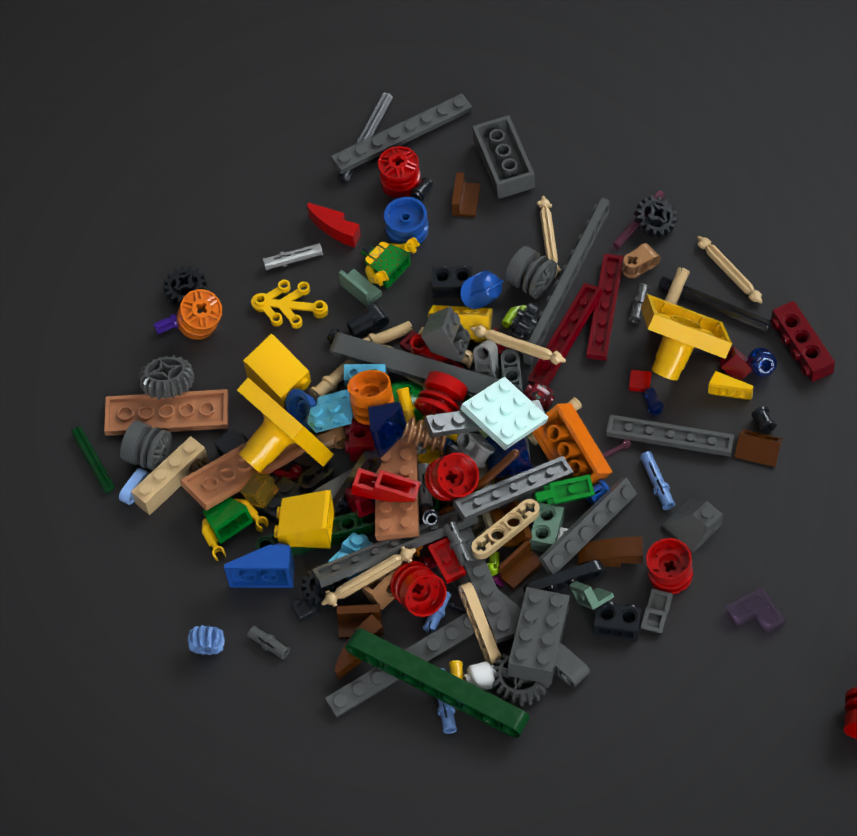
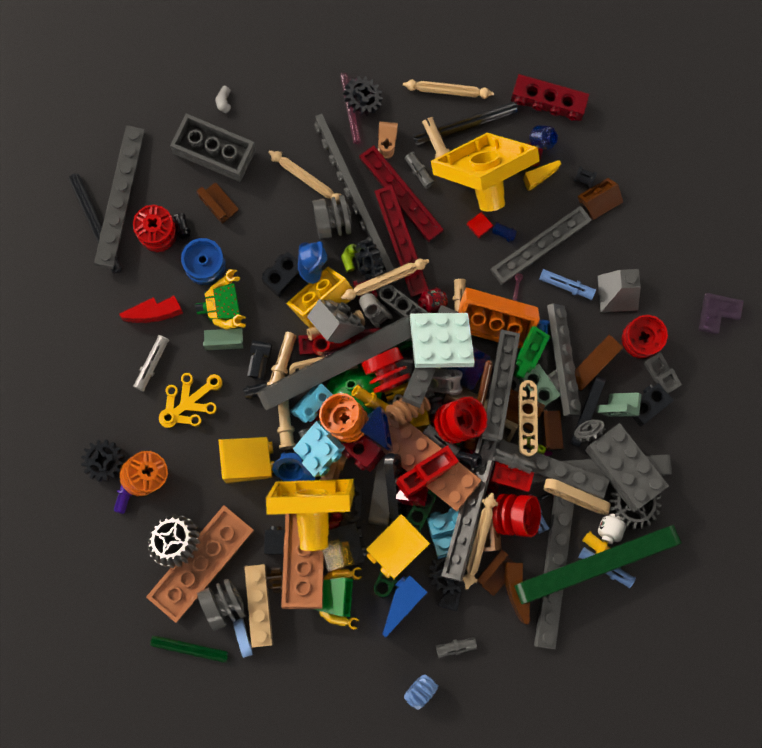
camera: 60 degrees left, 20 degrees up
(542, 582) = (589, 430): none -> dark grey gear
(551, 133) = (221, 100): none -> light grey arm

